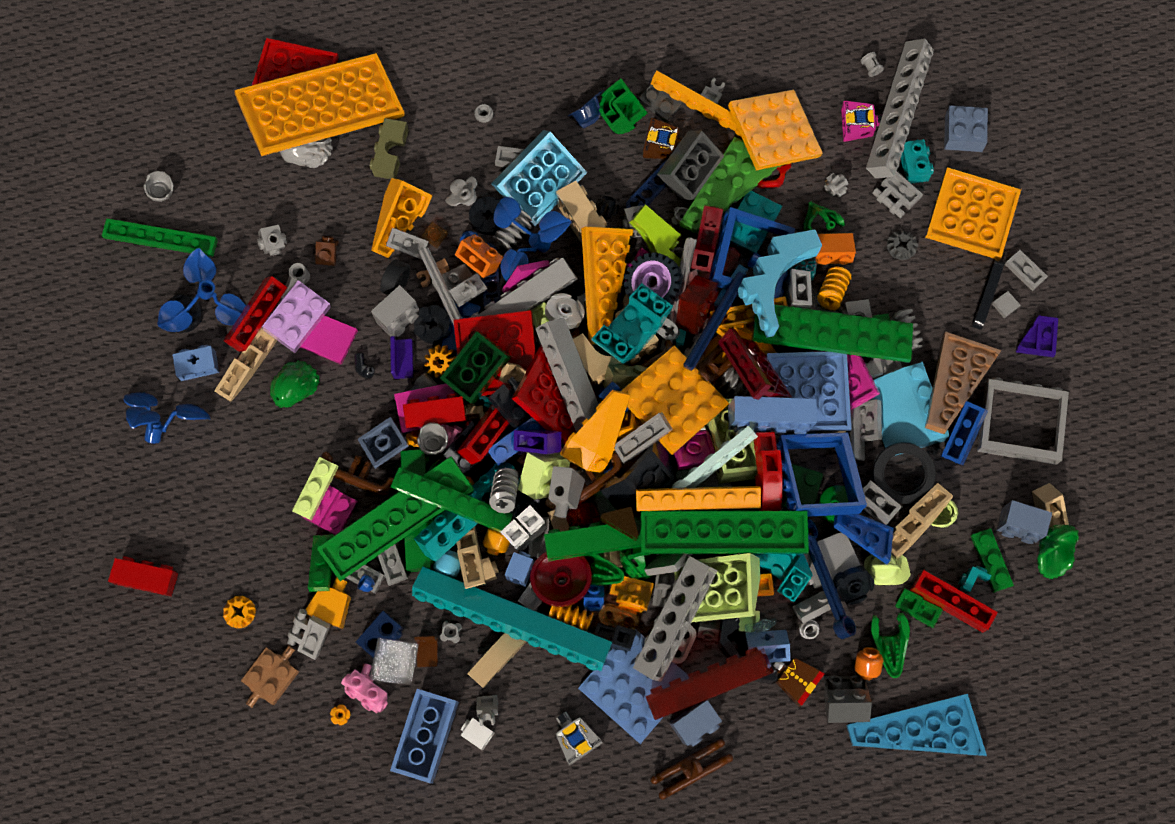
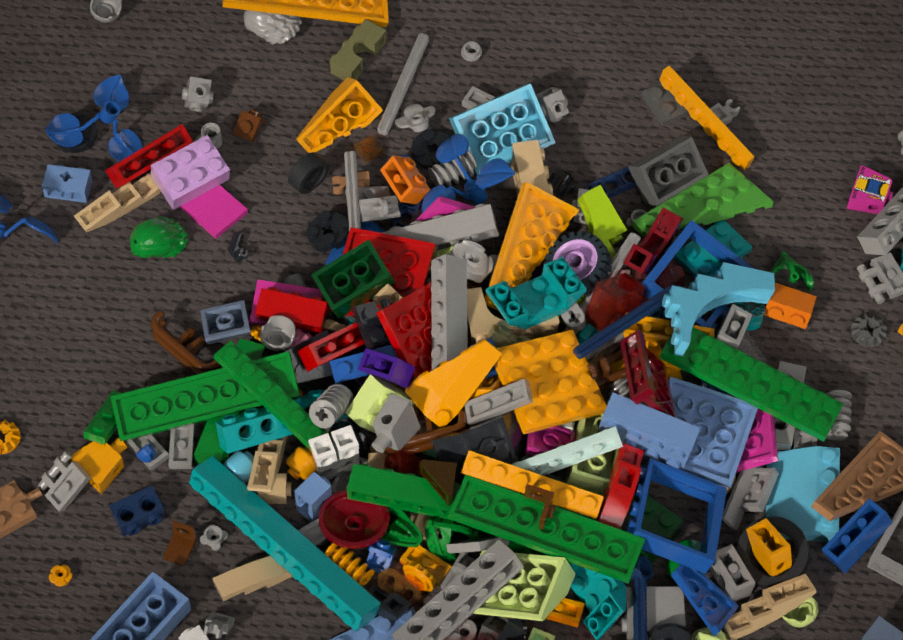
camera: 15 degrees right, 15 degrees down
(158, 237) = (83, 53): green plate -> none
(315, 488) = (135, 341): yellowish green plate -> none
(334, 511) = (139, 367): dark pink plate -> none
(362, 688) = (97, 558): bright pink brick -> none
(394, 661) = (141, 540): clear plate -> none
(396, 312) = (294, 204): light grey brick -> none
(401, 358) = (281, 253): dark purple panel -> none
(406, 243) = (333, 143): light grey plate -> none
(439, 169) = (403, 84): none -> light grey axle
(442, 354) = (315, 263): light orange gear -> none
(571, 138) = (553, 104): none -> light grey brick
(588, 113) = (583, 84): dark blue piece -> none
(621, 108) = (617, 92): green brick -> none
(660, 140) = (646, 137): torso -> none
(722, 518) = (547, 498): none -> reddish brown bracket
(775, 129) = (774, 168): light orange plate -> none
(777, 182) = (756, 223): red helmet -> none
(834, 288) = (774, 342): light orange piece -> none
(836, 185) = (819, 245): light grey gear -> none
(905, 476) = (775, 553): none -> light orange torso

